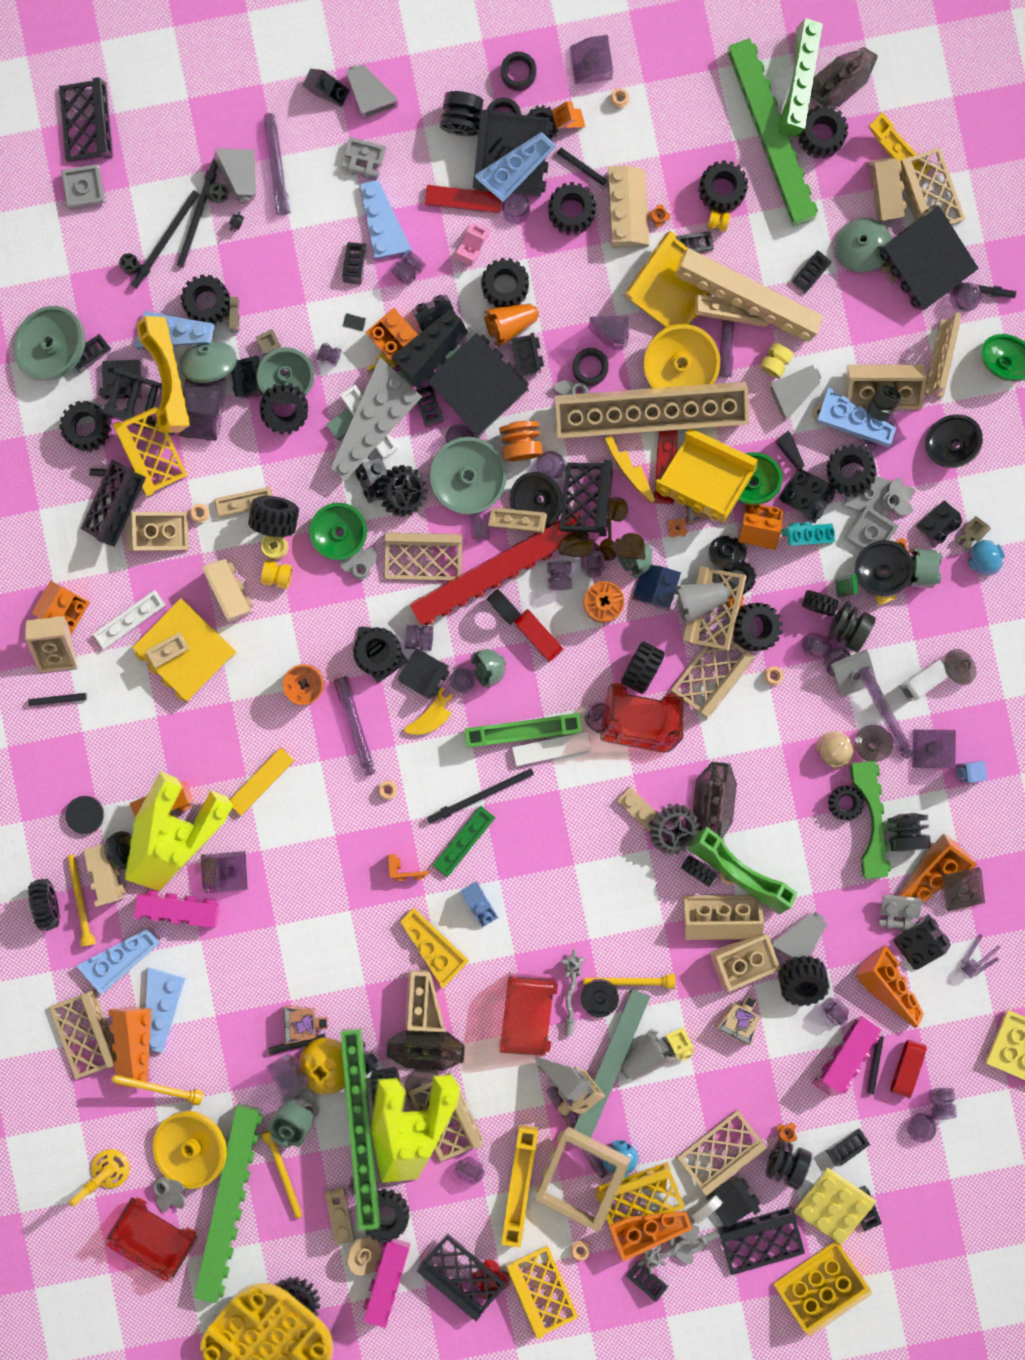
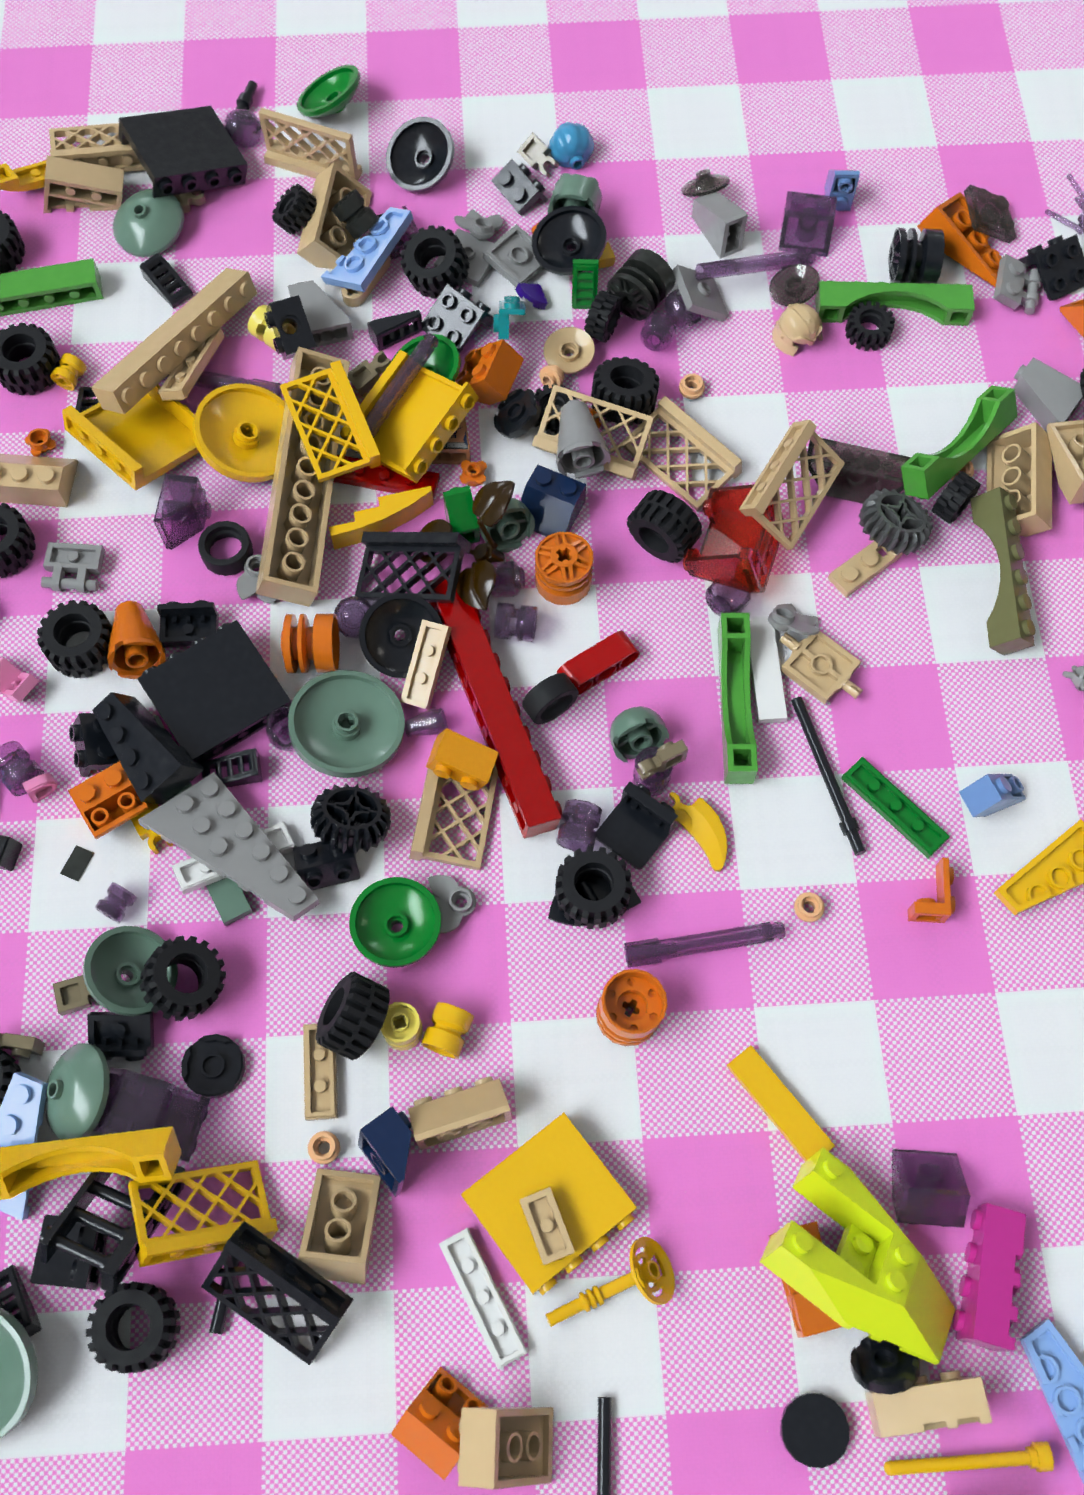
camera: 80 degrees left, 20 degrees down
(152, 705) = (640, 1275): none -> yellow dish
(201, 552) = (386, 1146): none -> dark blue slope
(238, 437) = (213, 1066): none -> black tile
(398, 286) = (40, 786): none -> bright pink tile
(449, 555) = (462, 760): none -> light orange brick
(465, 687) = (666, 757): none -> dark tan plate
(557, 785) = (820, 666): none -> tan plate
(568, 265) = (72, 558): none -> light grey plate
(588, 766) = (785, 618): none -> light grey plate
(635, 523) = (459, 513): none -> green slope
(681, 900) = (1010, 620): none -> olive arch
(688, 742) = (781, 467): none -> tan fence
(695, 436) = (349, 408): none -> yellow fence
(696, 448) = (400, 383): none -> piece
(747, 436) = (367, 374): none -> dark tan plate
(759, 384) = (289, 311): none -> black brick
(765, 572) = (551, 375): none -> light nougat plate
(792, 572) = (568, 341): none -> tan dish
(838, 547) = (532, 293): none -> dark purple tile
(886, 354) = (294, 209): none -> black tyre

